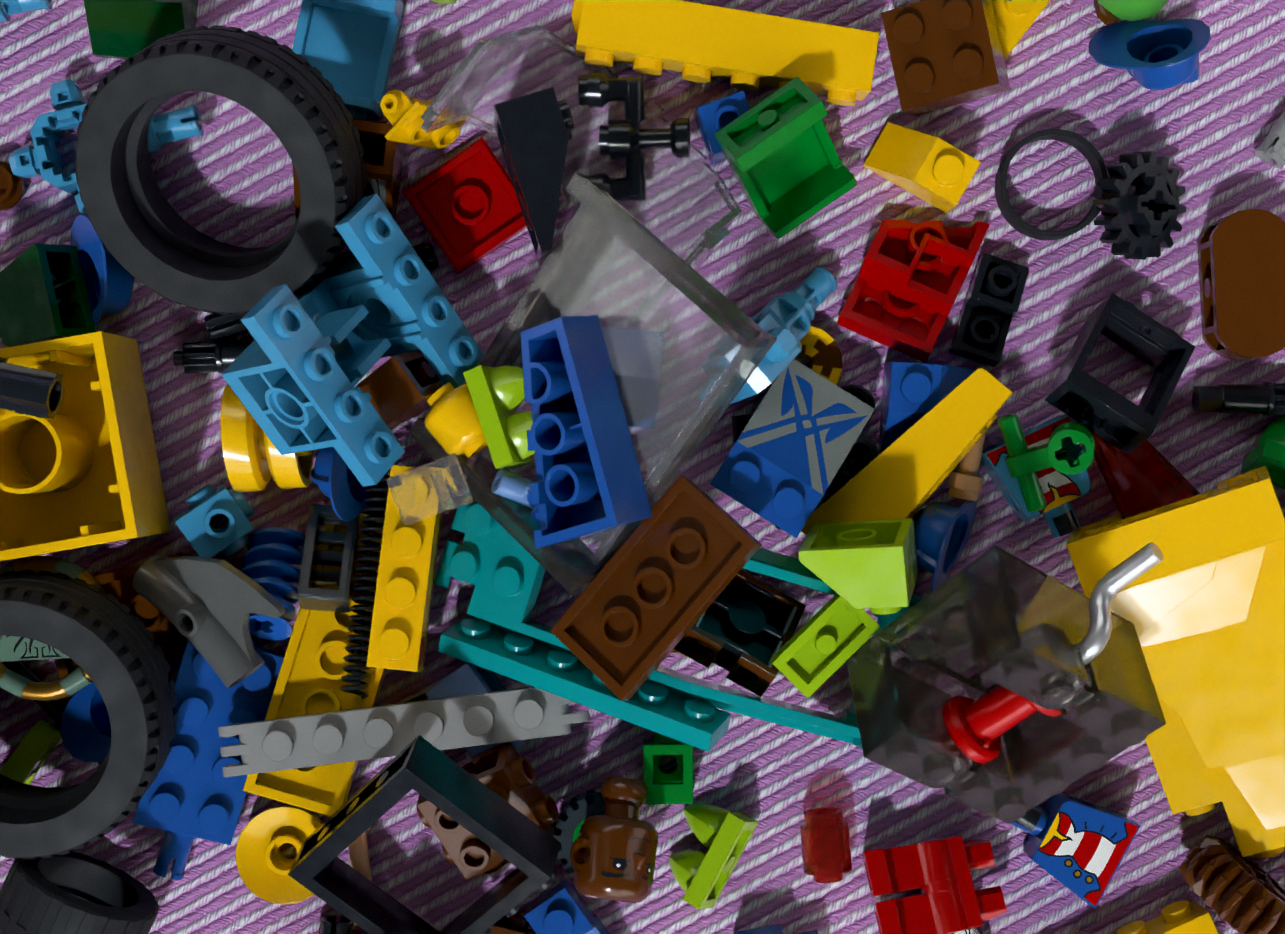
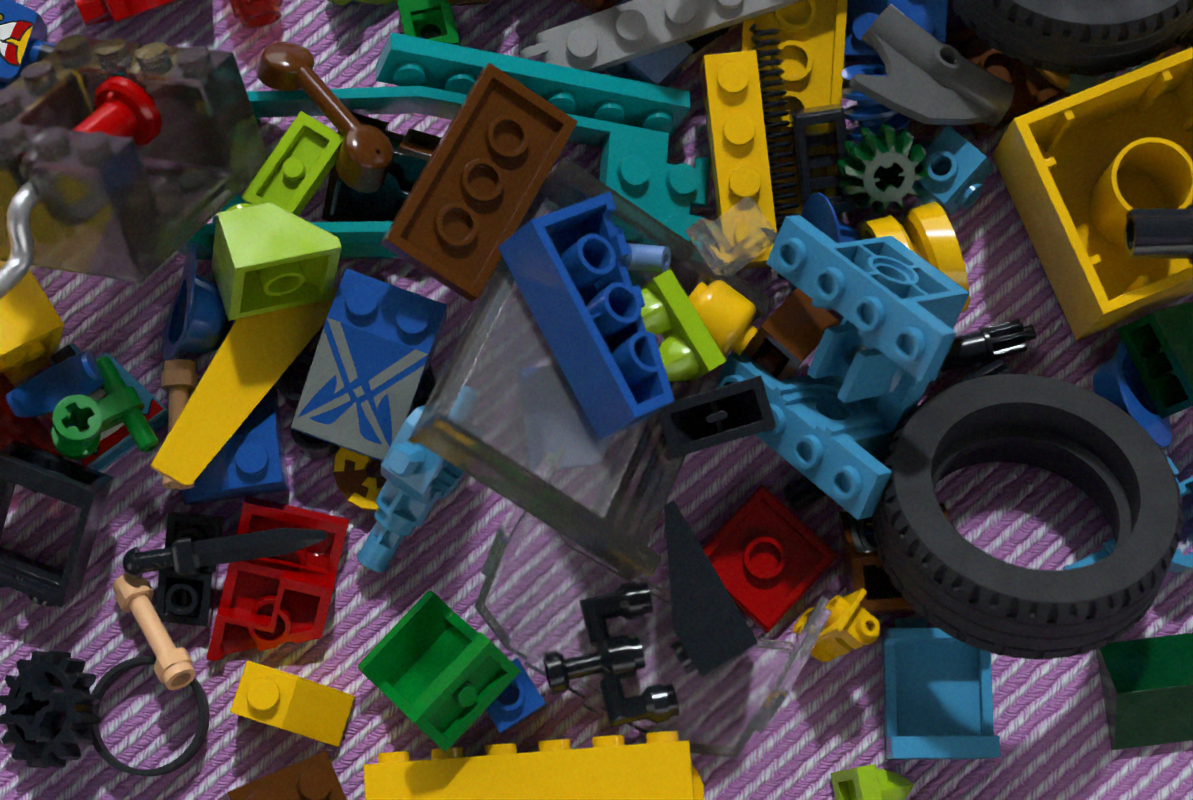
camera: 165 degrees right, 10 degrees down
(274, 529) = (874, 185): none -> dark green gear
(481, 324) = (716, 417): none -> black slope
(754, 646) = (365, 149): none -> reddish brown piece
(988, 316) = (189, 554): none -> black sword
(1042, 296) = (172, 664): none -> light nougat bar
(1083, 493) = (45, 390): none -> blue helmet

